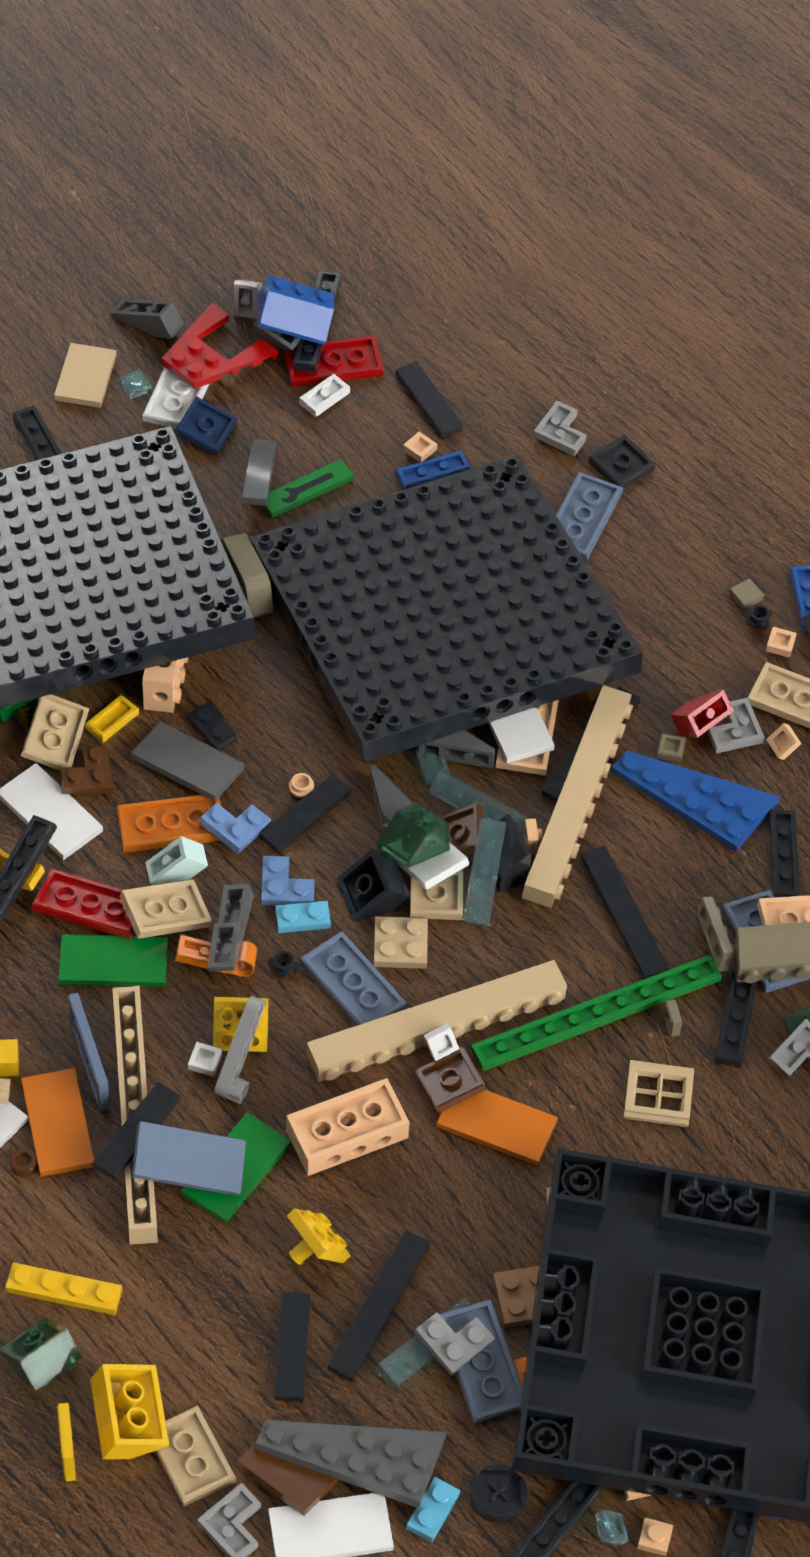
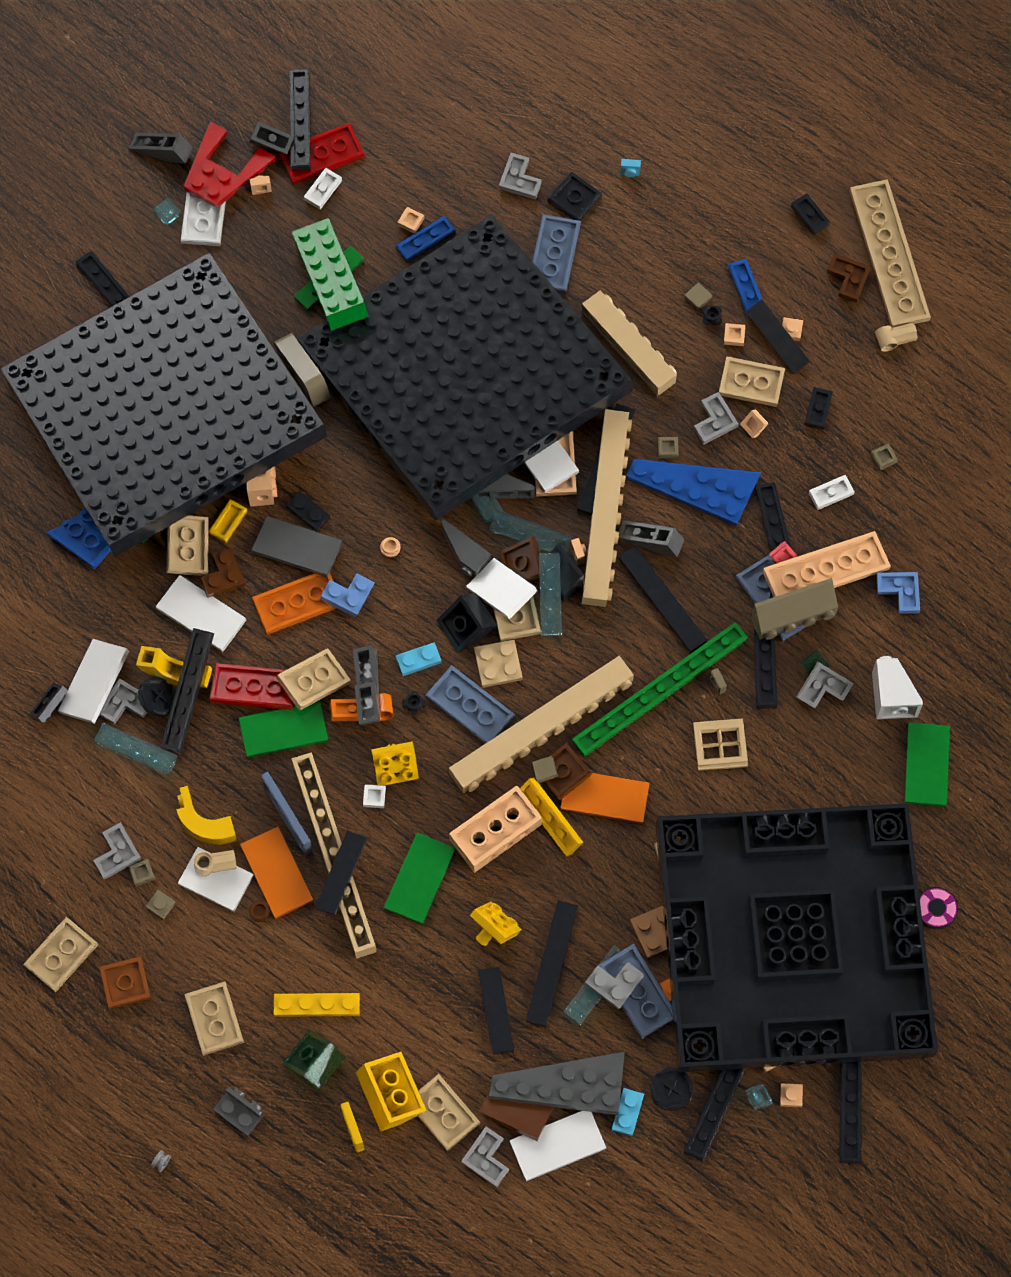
camera: 10 degrees left, 15 degrees up
(85, 375) = (124, 212): tan tile -> none
(177, 862) = (311, 636): light aqua slope -> none
(188, 1158) = (385, 885): sand blue tile -> none
(205, 426) = (234, 239): dark blue tile -> none
(229, 1083) = (398, 813): light grey beam -> none
(246, 298) = (238, 111): white slope -> none
(252, 377) = (260, 185): none -> light nougat plate
(259, 472) = (288, 273): dark grey slope -> none
(279, 888) = (393, 638): medium blue plate -> none
(295, 309) = (282, 120): slope -> none
(305, 813) = (399, 570): black tile -> none
(307, 477) = (330, 274): none -> brick
(415, 835) = (490, 577): clear green slope -> none
(423, 1132) = (552, 818): none -> yellow plate
(428, 1071) = (545, 769): none -> dark tan tile
(429, 399) = (407, 172): black tile -> none
(441, 1042) = (549, 743): white plate -> none
(629, 840) = (652, 537): none -> dark grey slope
(650, 625) = (629, 343): none -> tan brick
(696, 443) = (630, 167): none -> medium azure plate
(701, 714) = (686, 415): red slope -> none
(715, 934) = (736, 604): dark tan plate -> none
(787, 888) = (782, 553): none -> coral tile

